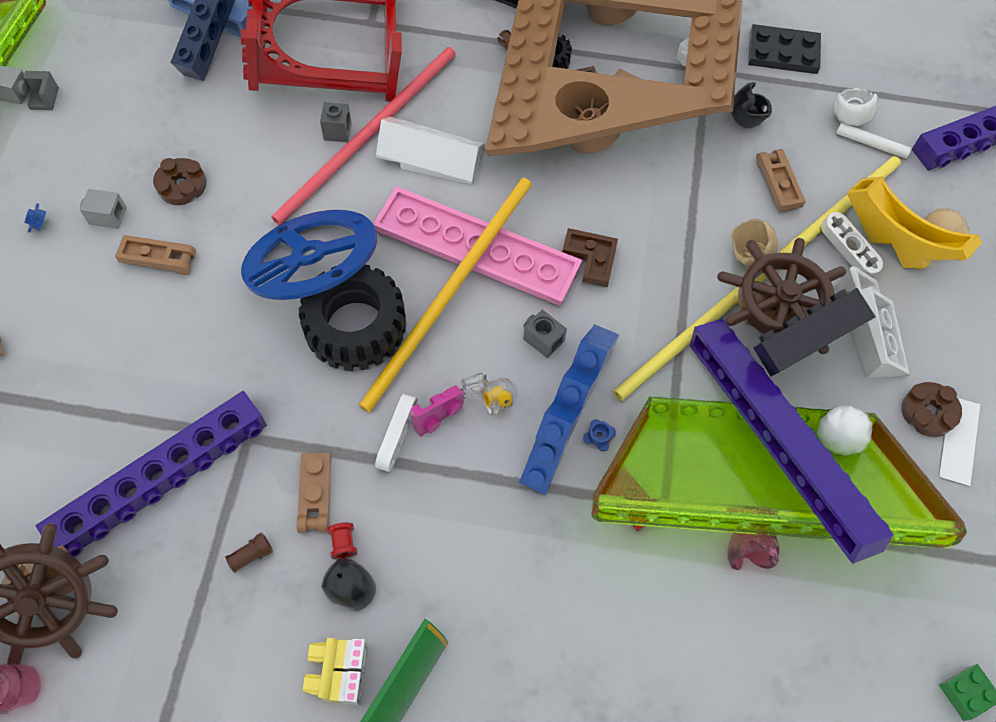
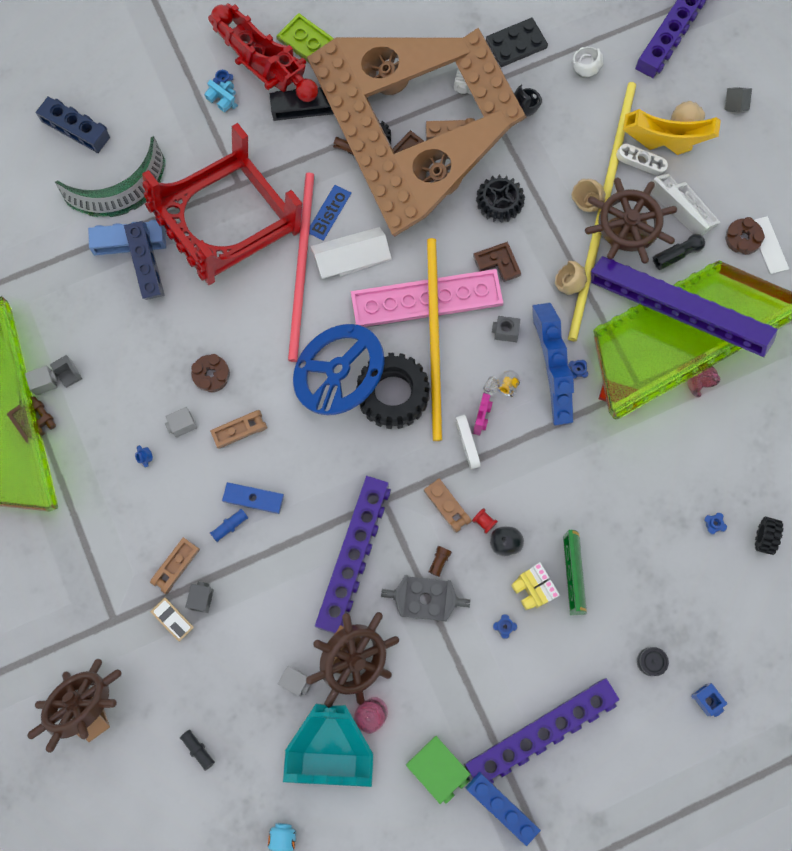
camera: 30 degrees left, 10 degrees up
(54, 348) = (229, 525): none -> blue pin
(105, 336) = (241, 496): none -> blue tile
(177, 570) = (441, 593): none -> dark grey plate
(254, 690) = (505, 621): none -> blue plate
(335, 122) = (279, 271): dark grey brick -> none
(442, 100) = (329, 212): none -> blue sticker
(641, 197) = (495, 190): none -> black gear
(665, 322) = (571, 278): none -> tan hair
(780, 180) = (573, 140): medium nougat plate -> none
(813, 332) = (663, 235): black brick -> none
(828, 374) = (679, 251): none -> black piece
(845, 430) = (710, 281): white hair -> none
(873, 140) = (611, 77): white piece -> none

